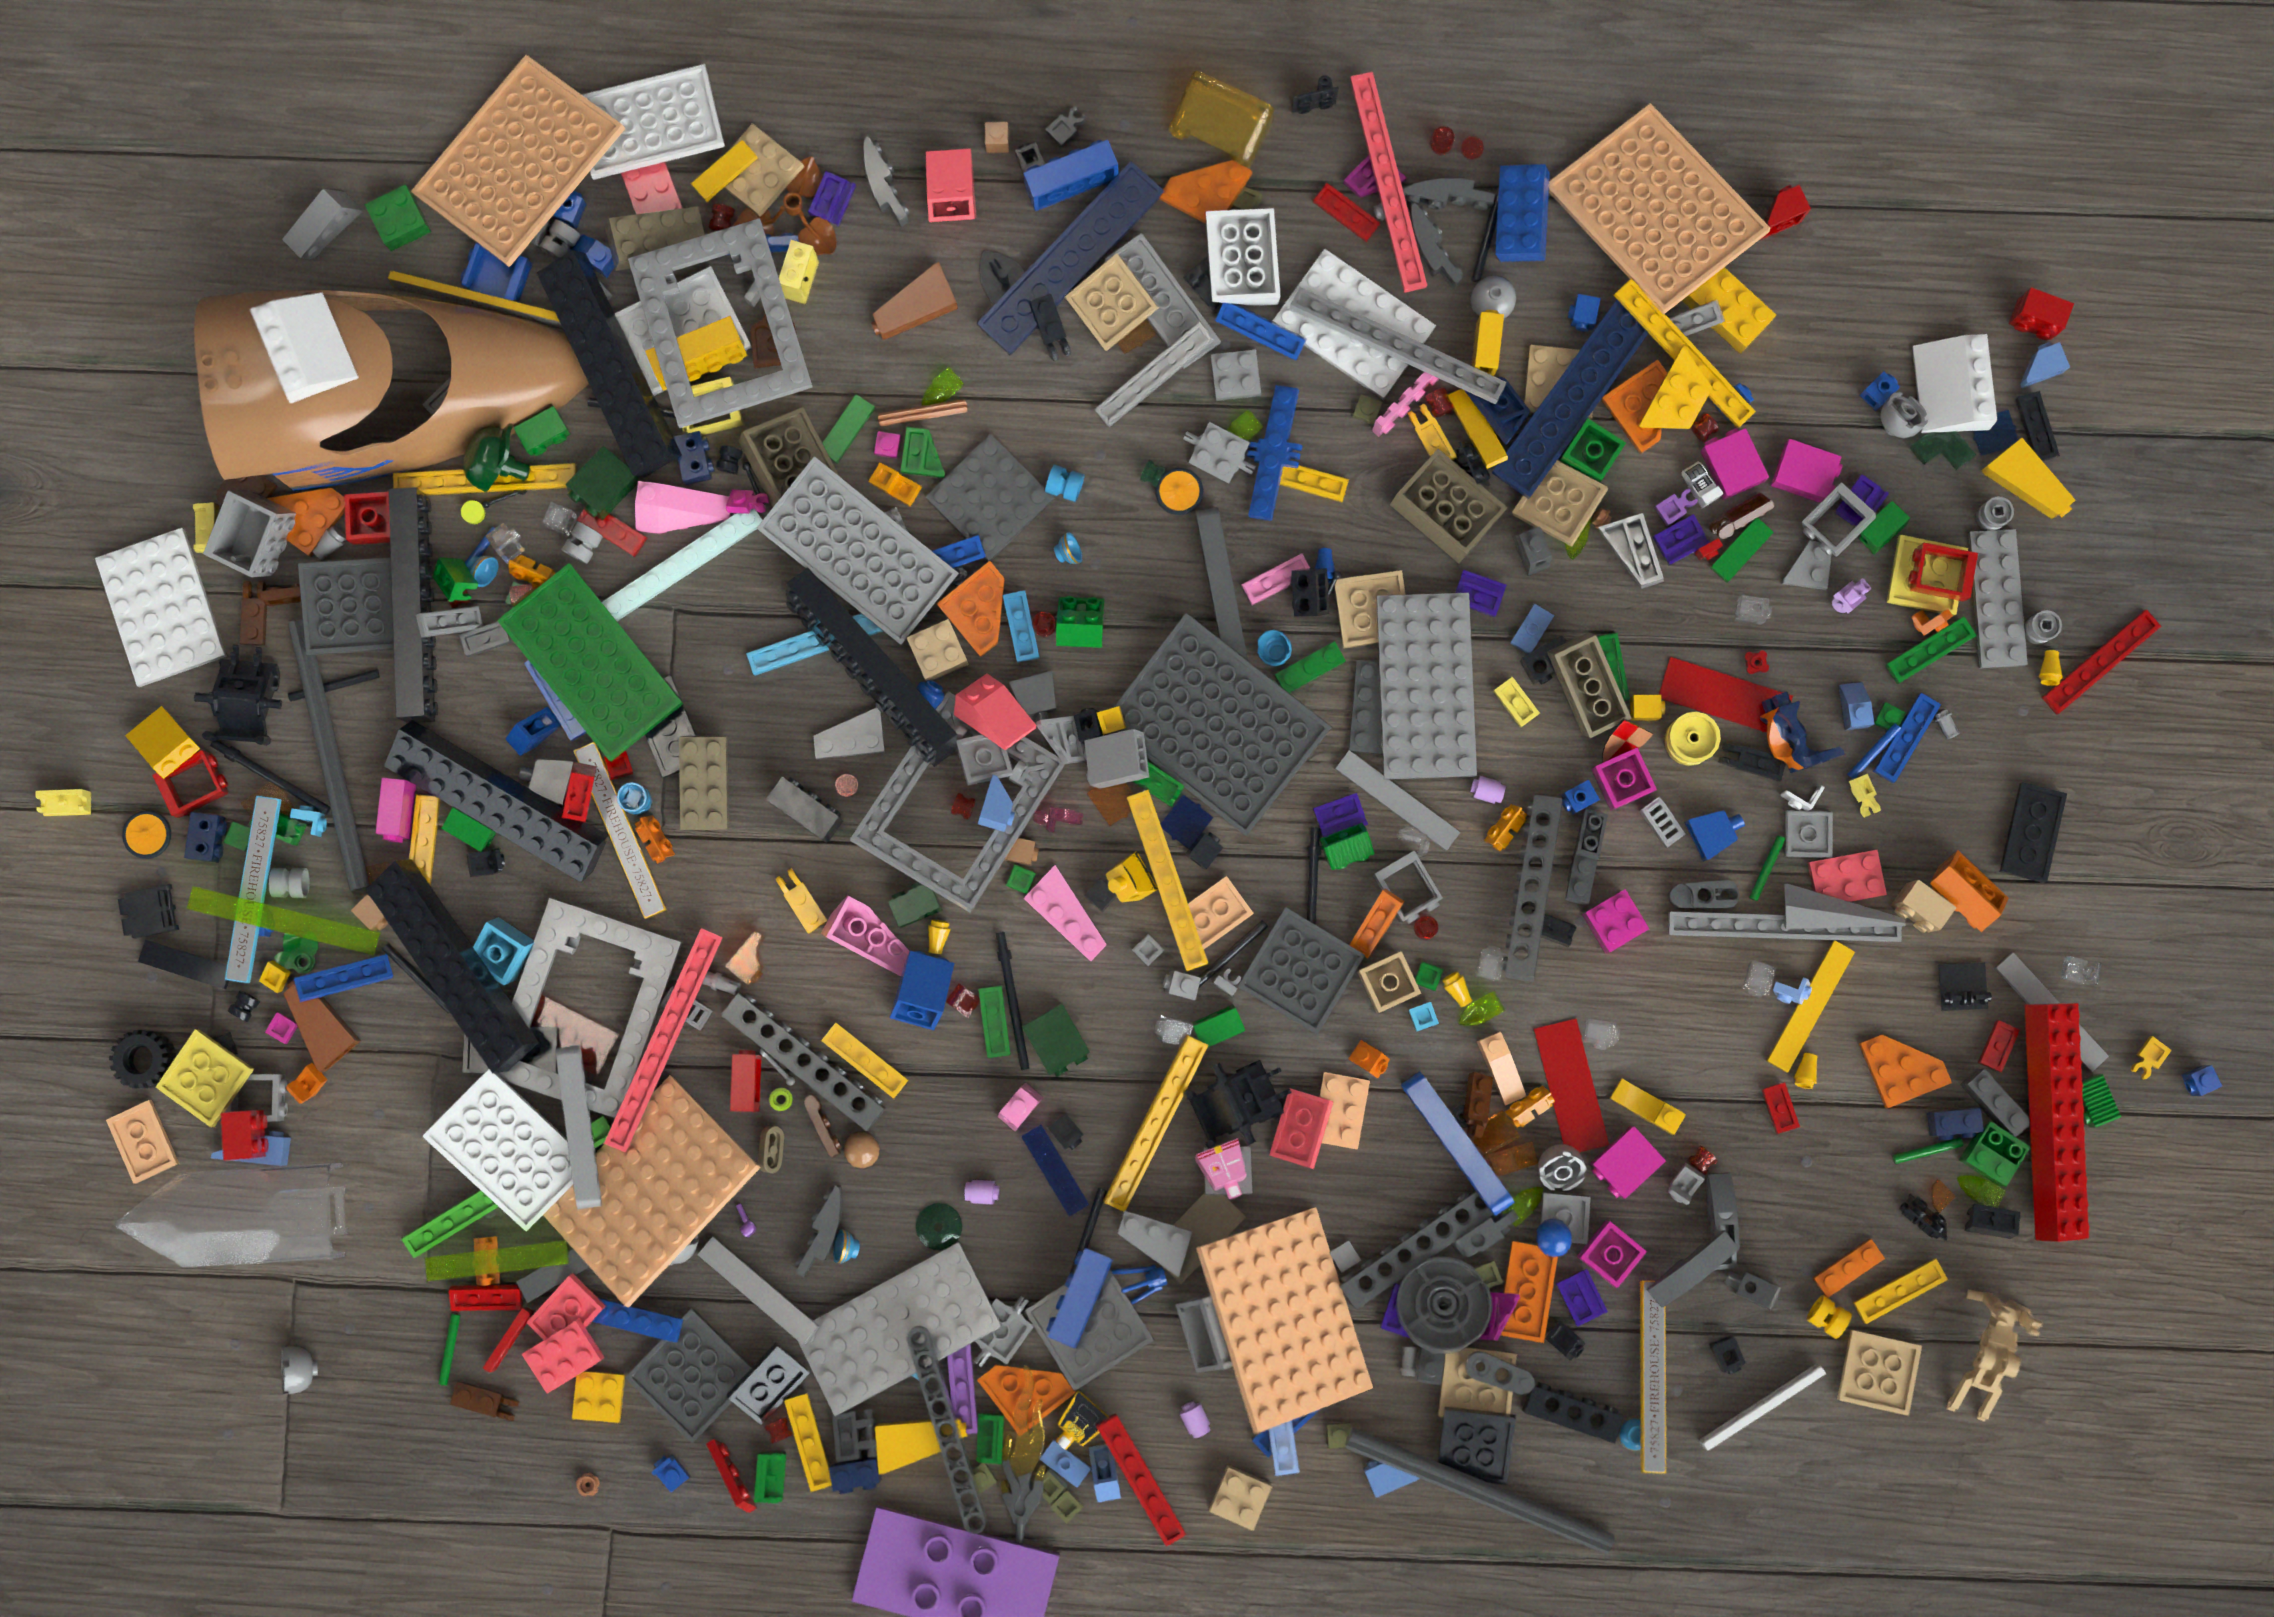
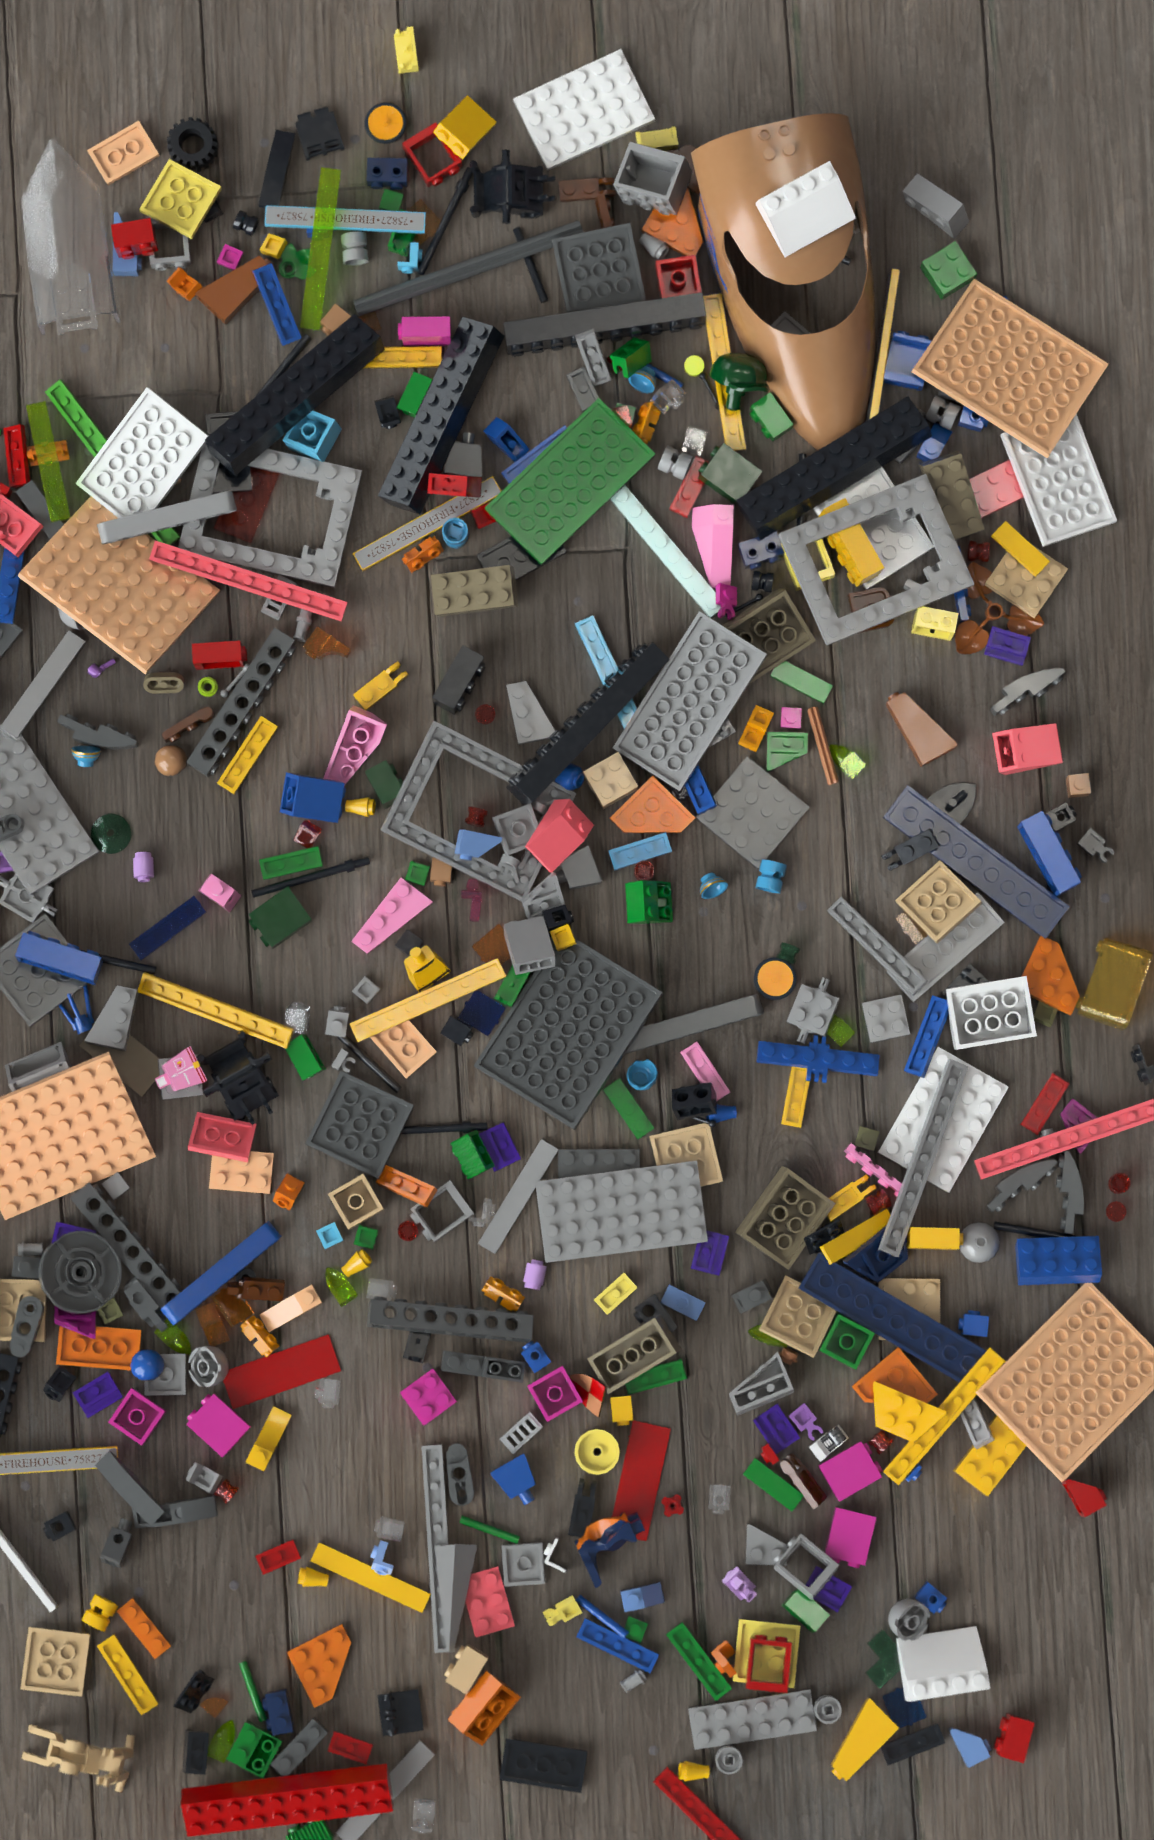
camera: 80 degrees right, 0 degrees up
(1066, 1132) = (201, 934): black bracket -> none

